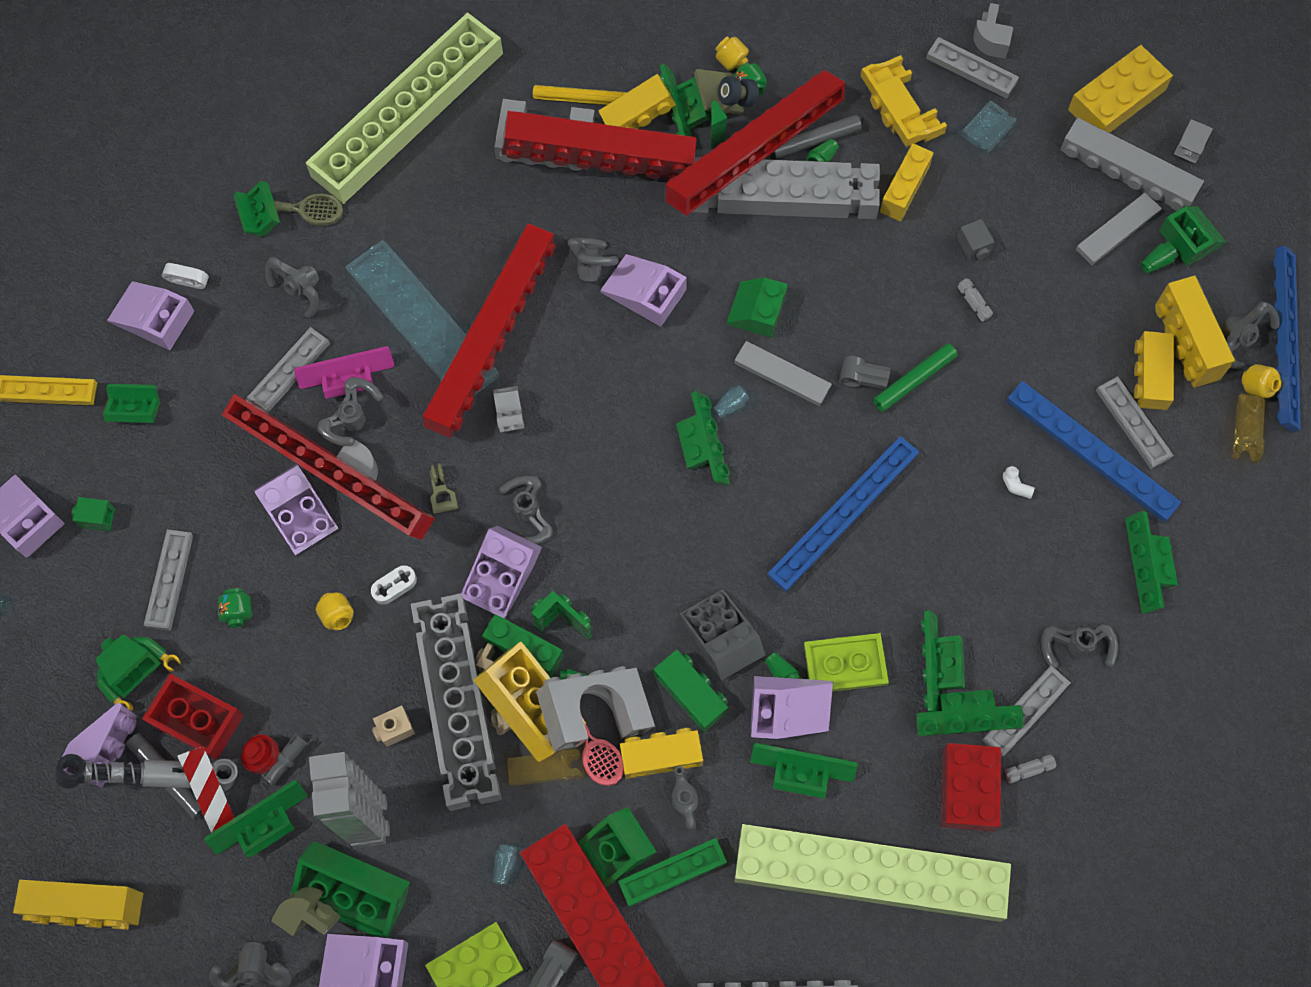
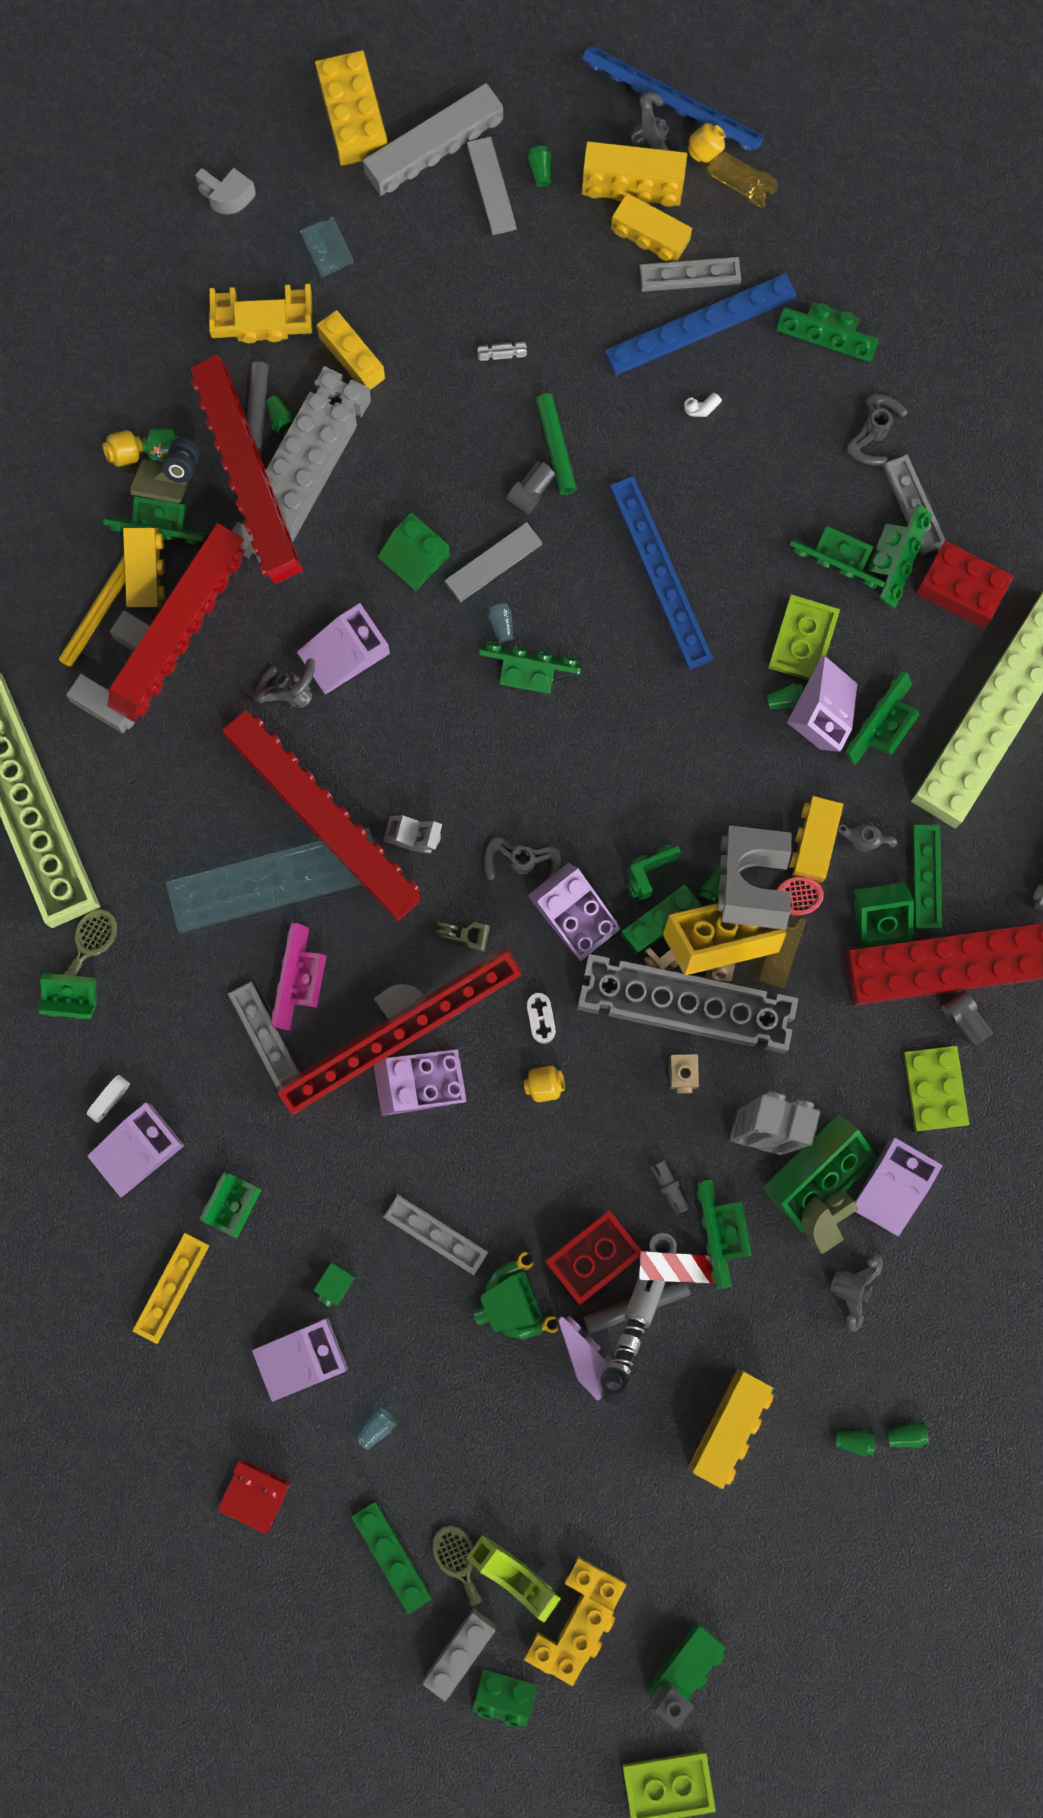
camera: 70 degrees left, 10 degrees up
(234, 607) = (498, 1178): green head -> none
(259, 754) = (655, 1208): red plate -> none
(296, 281) = (174, 987): dark grey piece -> none
(349, 412) = (347, 988): dark grey piece -> none
(505, 863) = (854, 1021): clear light blue cone -> none
(691, 690) = (769, 786): green brick -> none
(718, 125) = (200, 499): green slope -> none
(723, 634) = (727, 734): dark grey slope -> none
(972, 67) = (253, 229): light grey plate -> none
(975, 240) = (443, 319): dark grey brick -> none
(1030, 769) = (967, 526): light grey axle -> none
(1191, 234) = (532, 124): green slope -> none
(1193, 141) = (436, 70): light grey brick -> none

